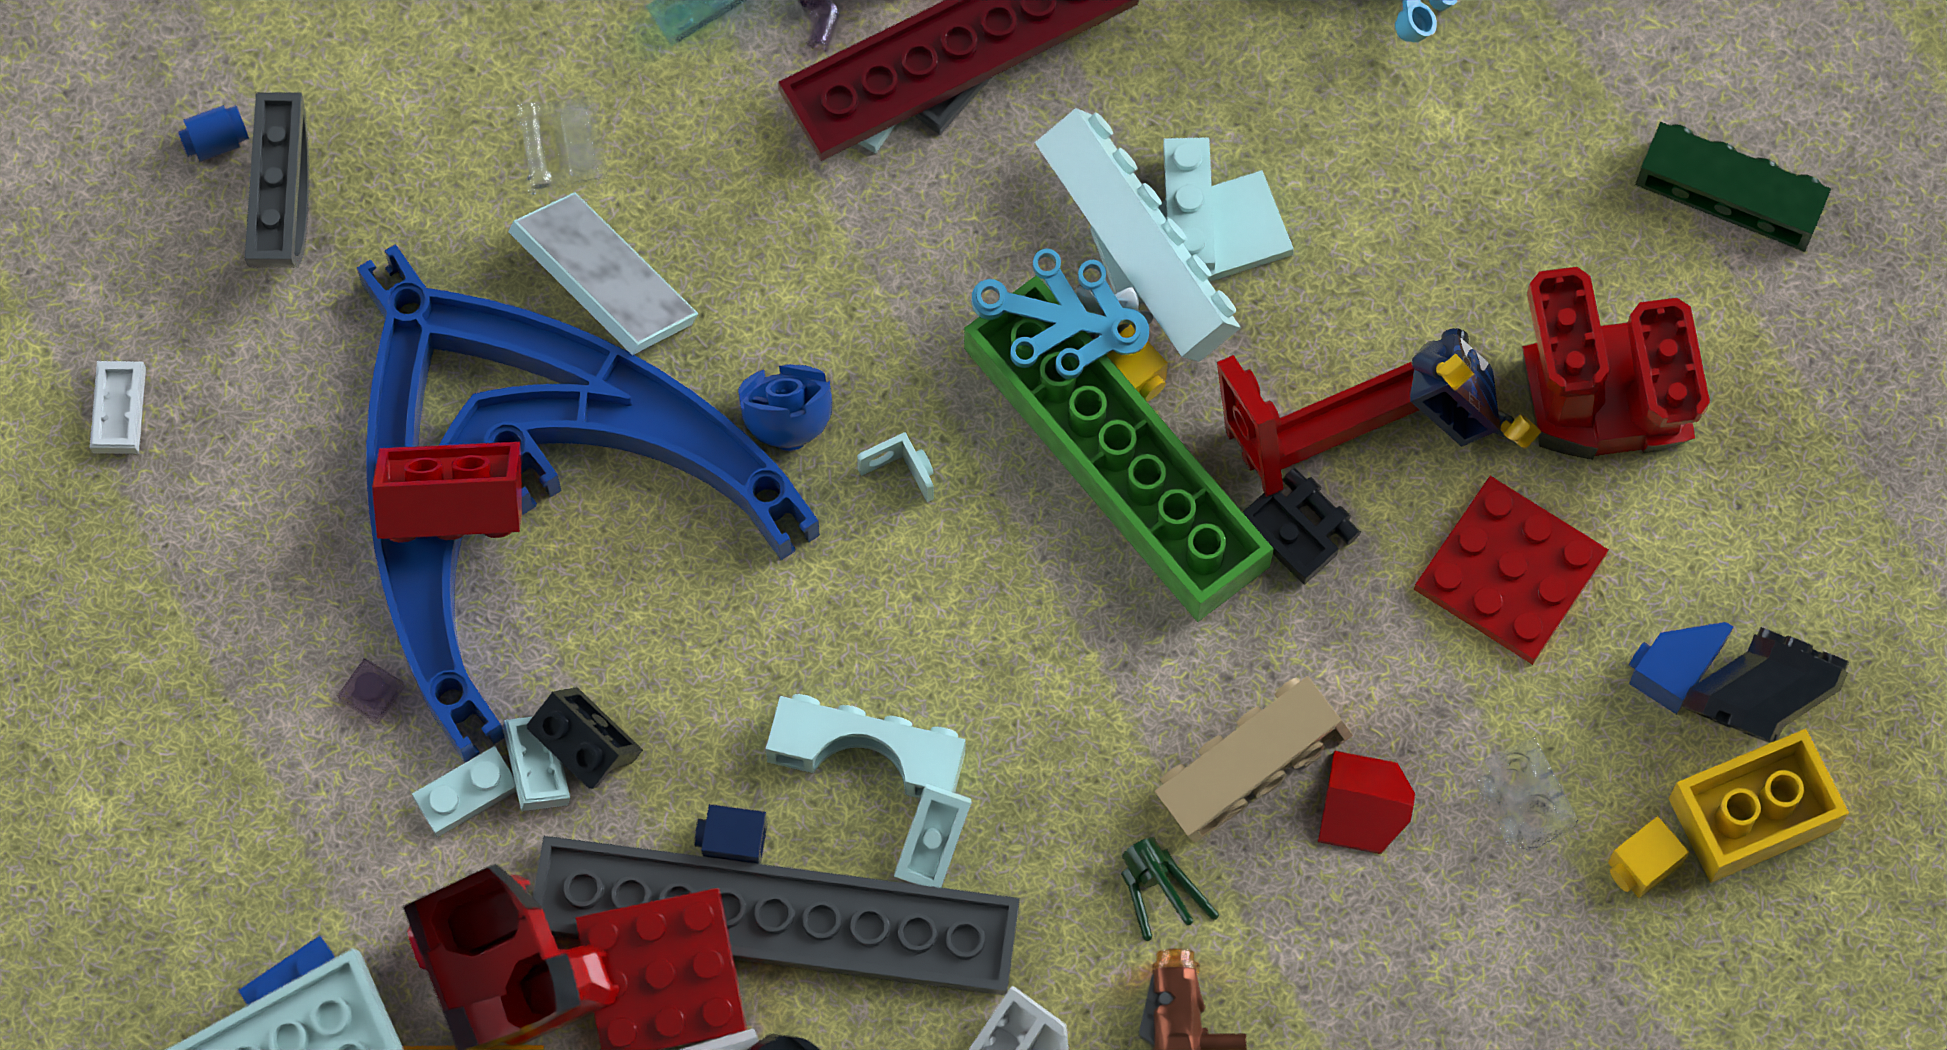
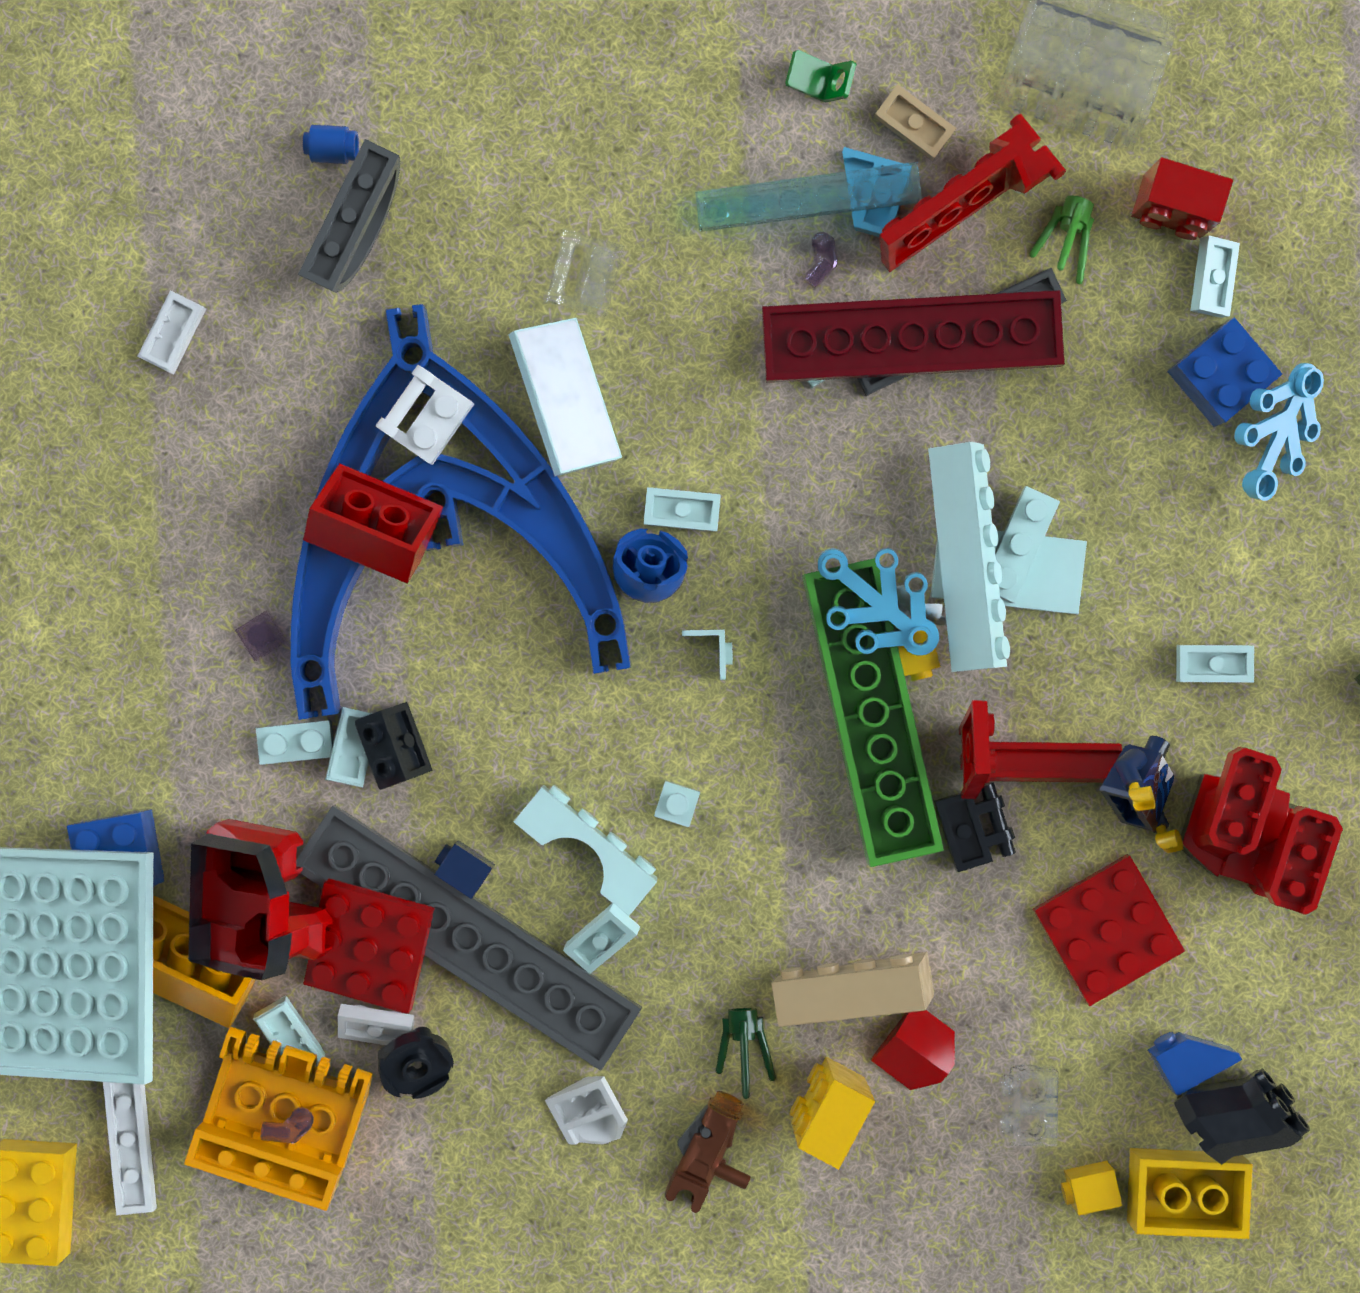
camera: 25 degrees right, 20 degrees up
(469, 355) = (435, 422): none -> white plate
(793, 336) = (682, 509): none -> light aqua plate
(946, 657) = (677, 803): none -> light aqua plate
(1294, 890) = (831, 1112): none -> yellow brick
(1472, 232) = (1215, 663): none -> light aqua plate

